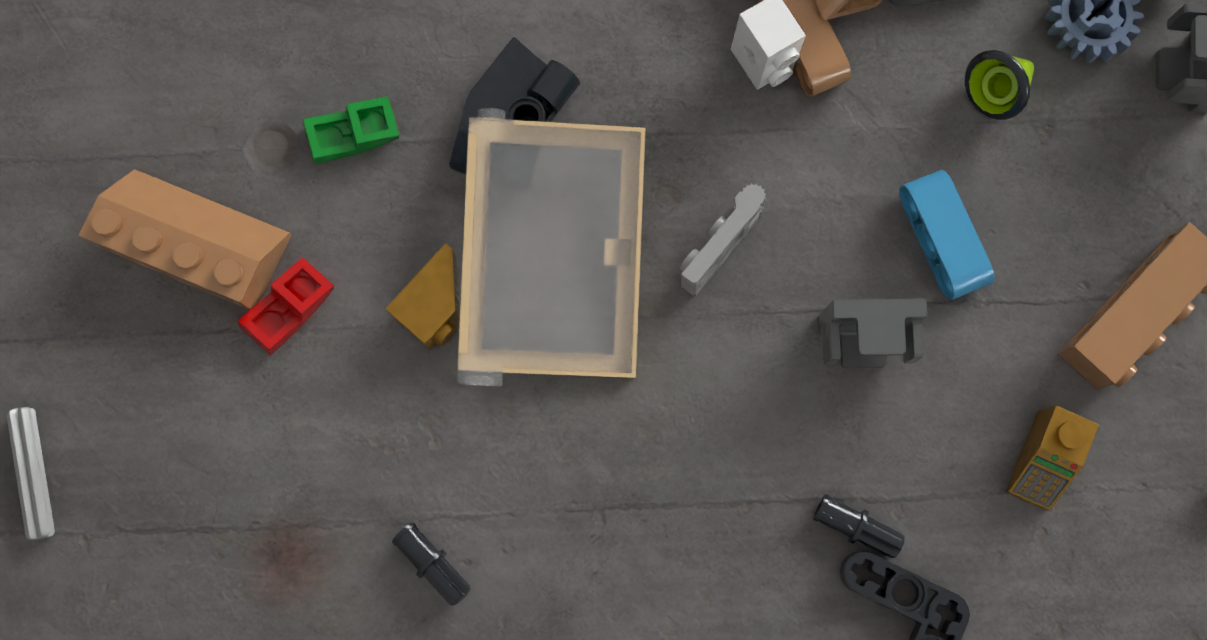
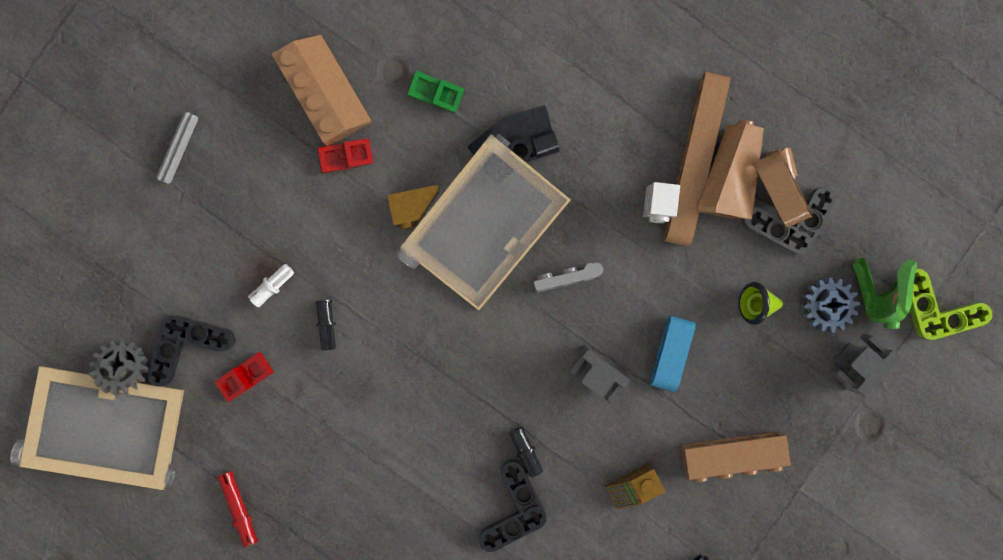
camera: 35 degrees right, 10 degrees up
(308, 569) = (270, 285): none -> white axle

